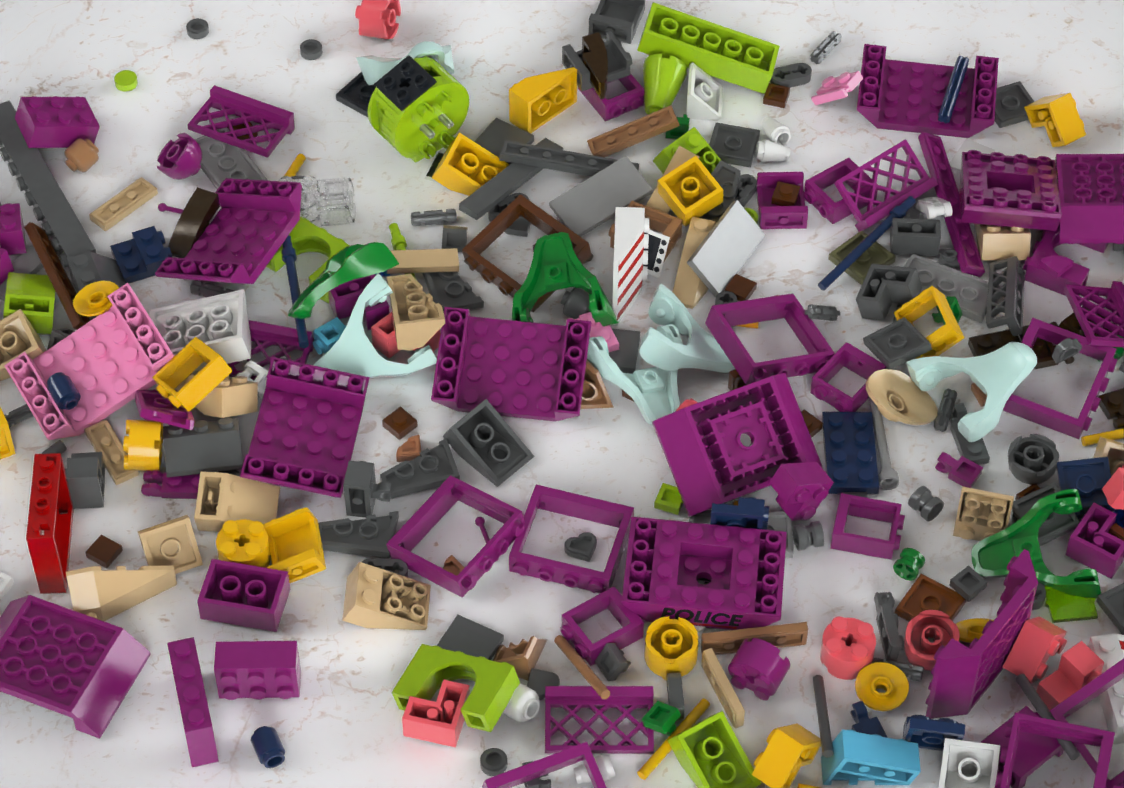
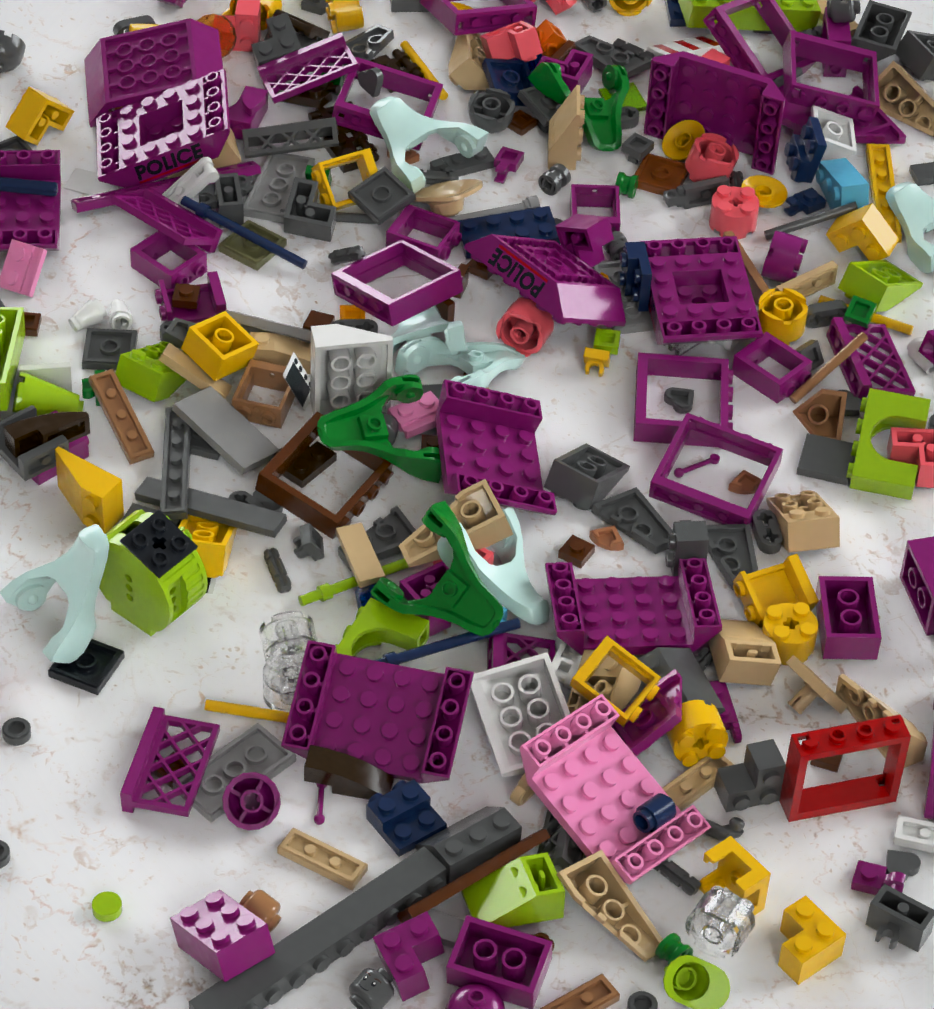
camera: 105 degrees left, 5 degrees down
(93, 298) = (521, 793): yellow dish -> none
(644, 483) = (597, 358): none -> yellow tile

